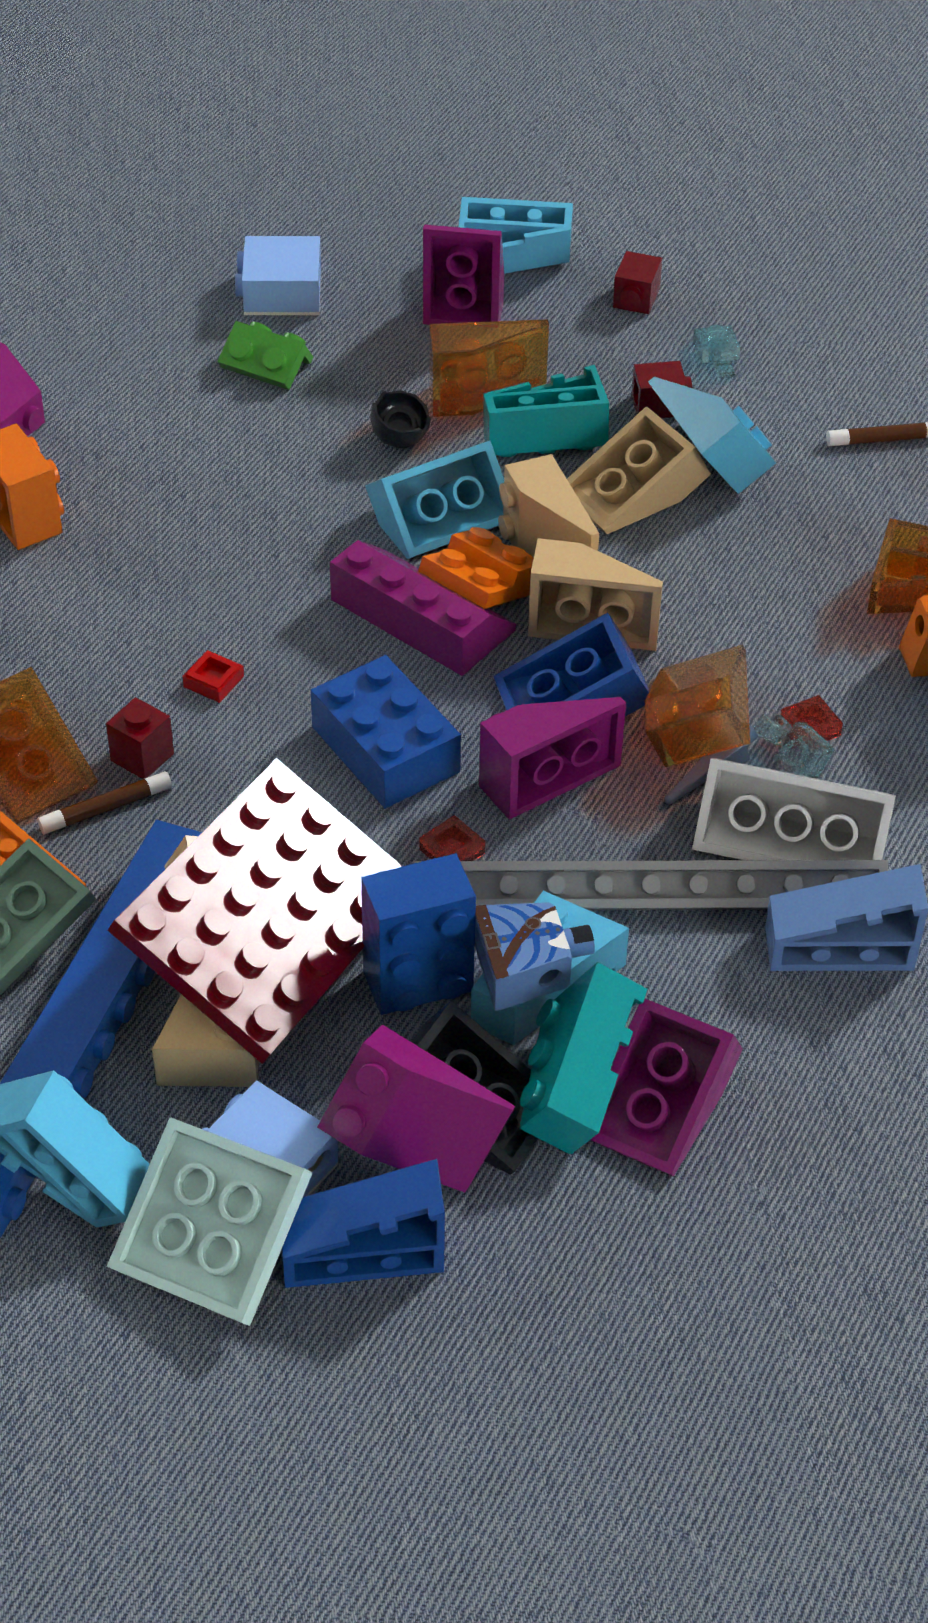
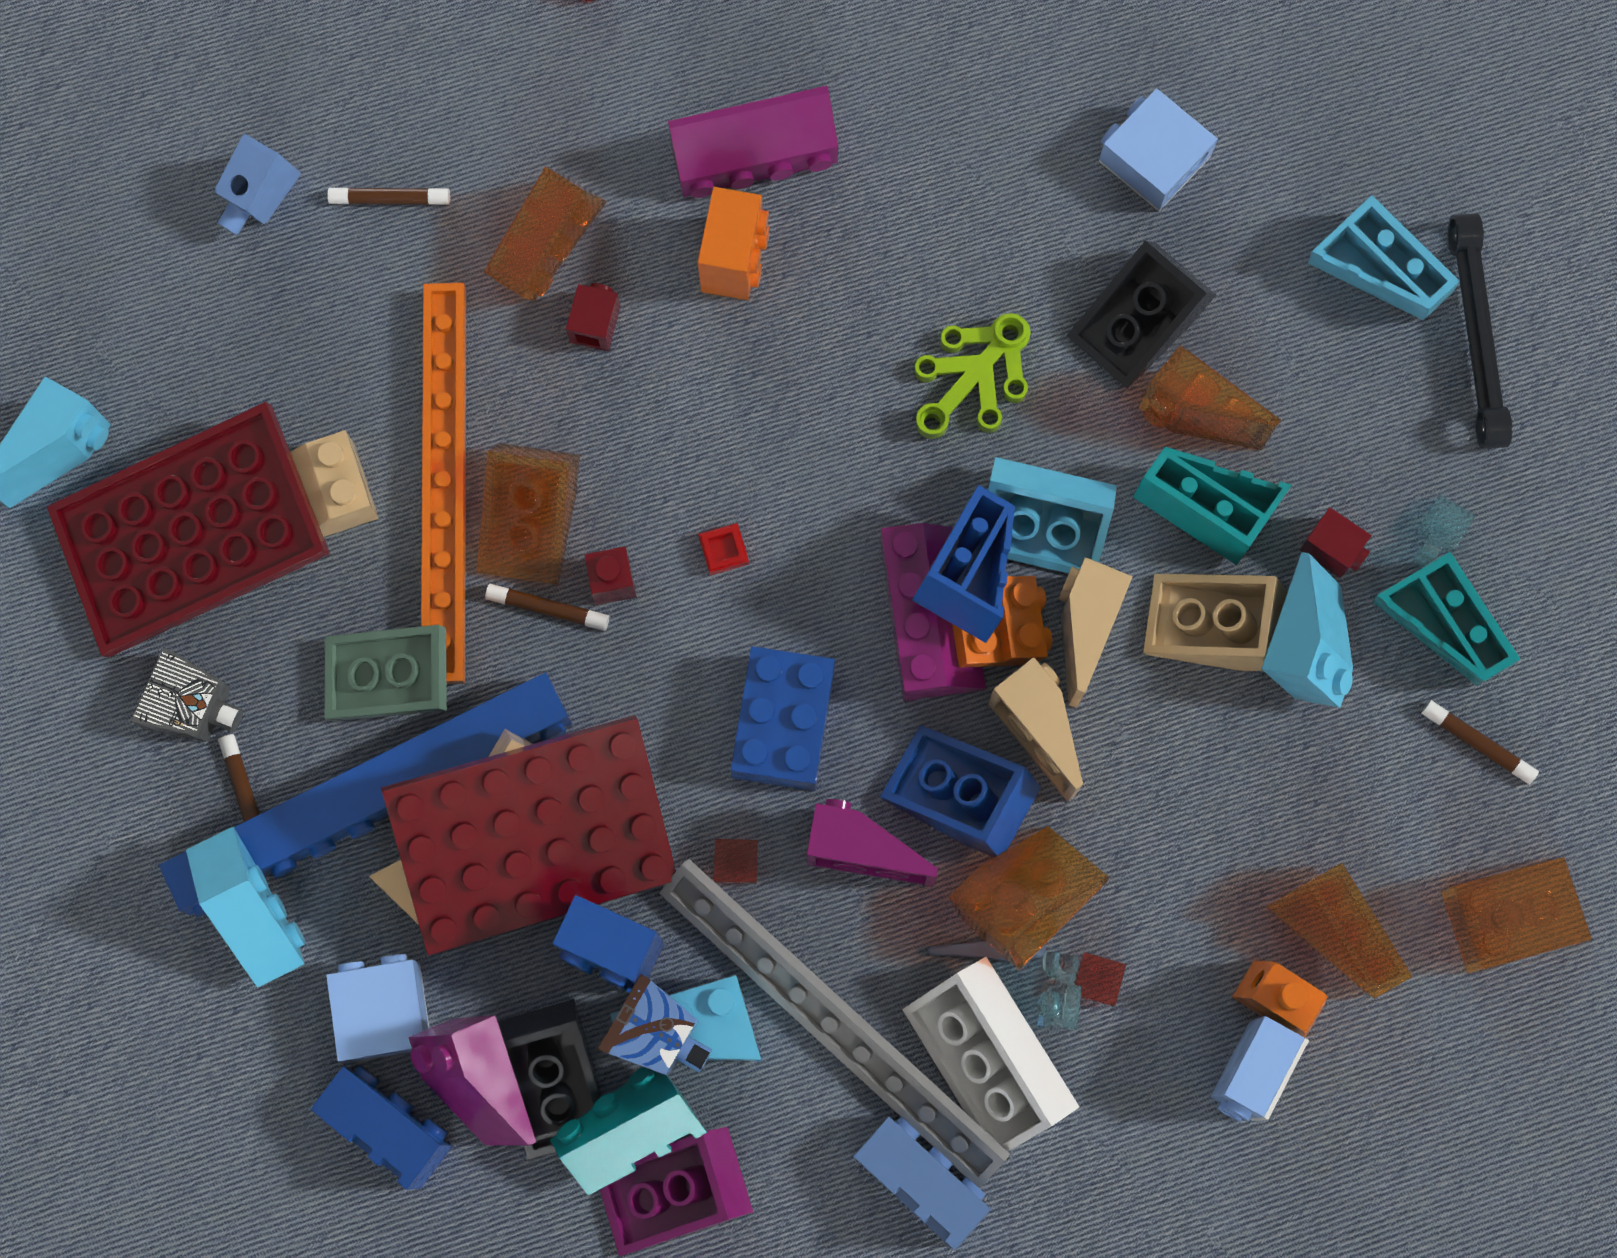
camera: 45 degrees right, 30 degrees up
(210, 1220) = (291, 1041): light aqua plate -> none
(264, 354) = (1062, 232): bright green bracket -> none
(291, 428) = (976, 370): none -> lime plant
(373, 350) = (1141, 313): none -> black slope
(399, 418) = (1094, 402): black hair -> none
(430, 526) = (970, 568): none -> blue wedge
(462, 275) = (1280, 296): magenta slope -> none
(621, 242) = (1493, 419): none -> black piece
(637, 282) = (1445, 401): dark red brick -> none
(788, 373) = (1450, 619): none -> teal wedge

